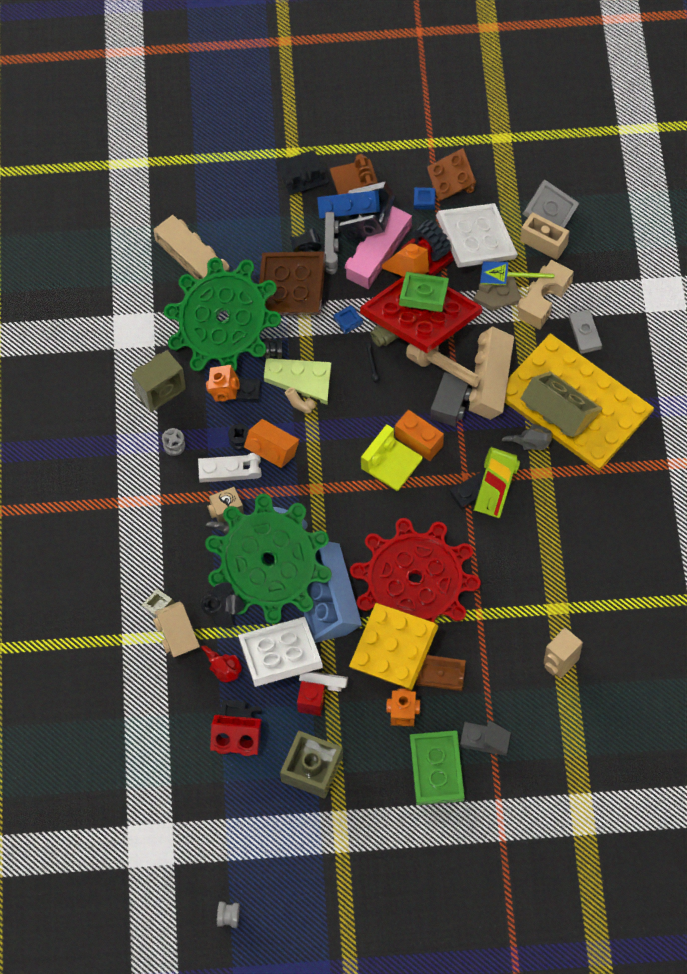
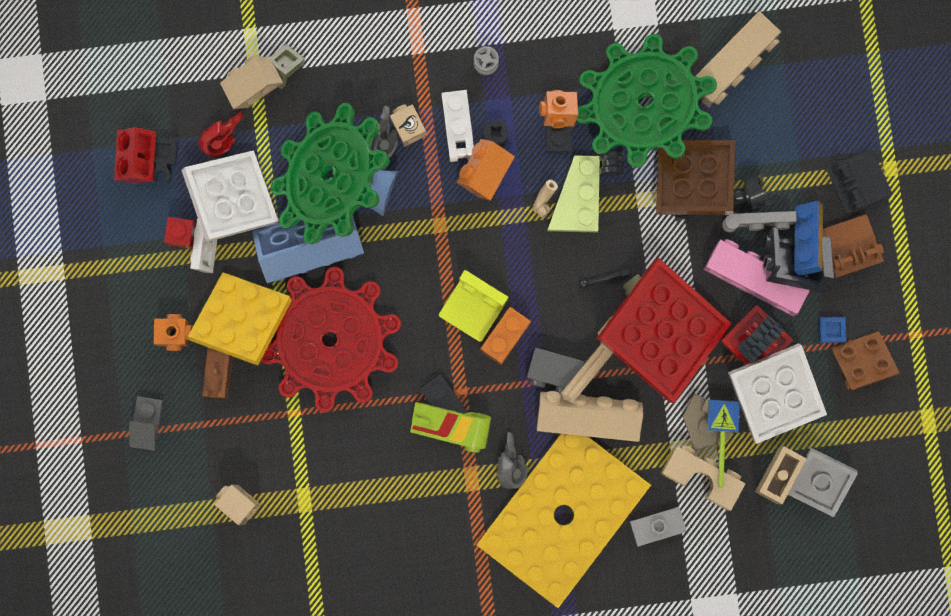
camera: 85 degrees right, 20 degrees up
(158, 381) = (556, 34): olive brick -> none
(226, 605) = (287, 130): black plate -> none
(311, 764) = (103, 238): olive brick -> none
(348, 319) = (659, 247): blue tile -> none
(409, 259) = (731, 312): orange slope -> none
(423, 291) = (685, 332): bright green plate -> none
(436, 767) = (109, 372): bright green plate -> none
(560, 403) = (549, 498): olive slope -> none

